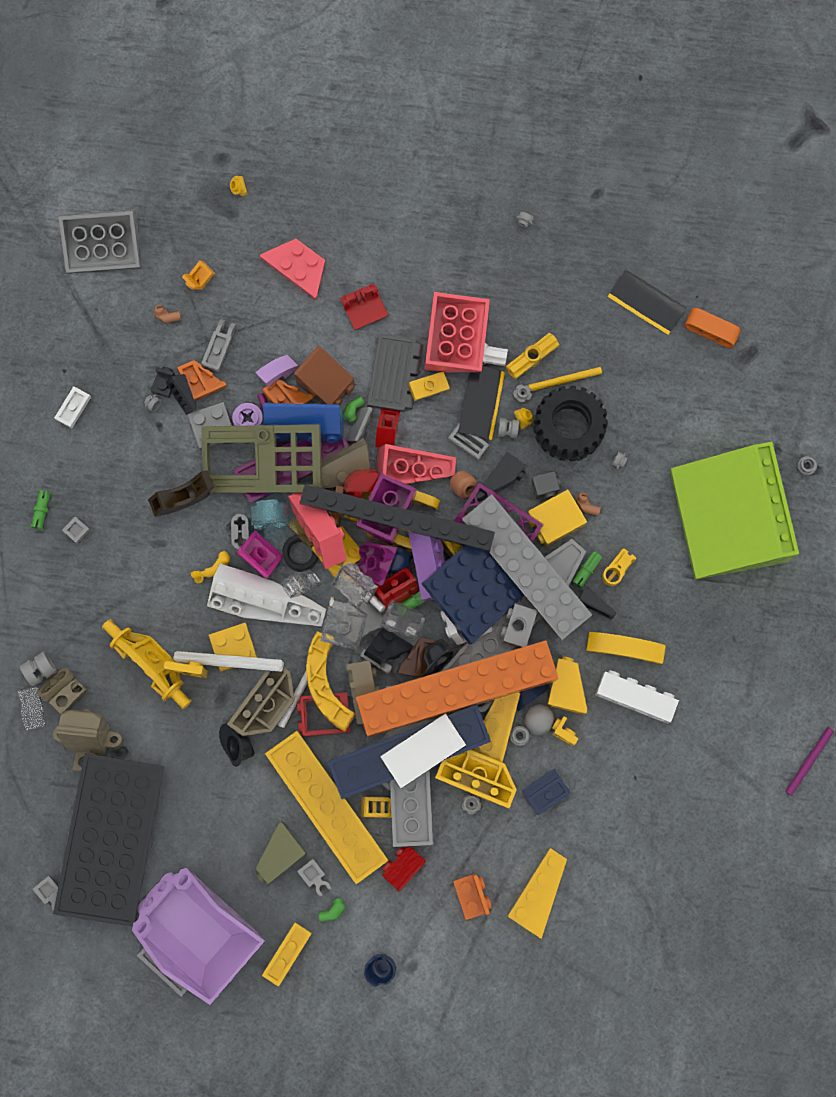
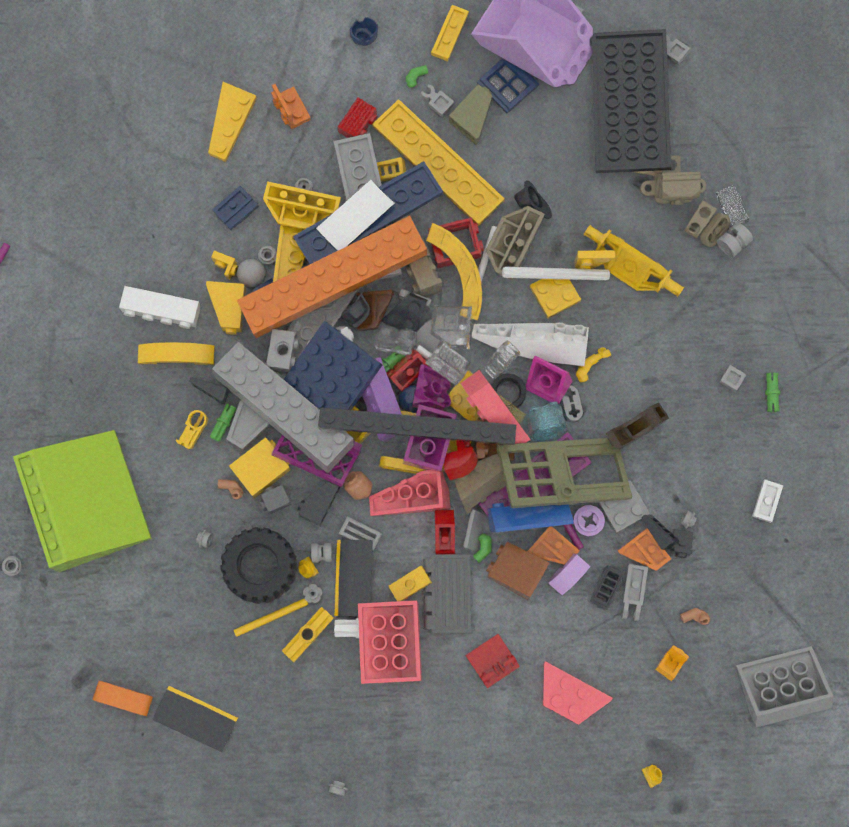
camera: 170 degrees right, 0 degrees up
(236, 883) = (508, 84): none -> dark blue piece
(249, 357) = (615, 572): none -> black slope

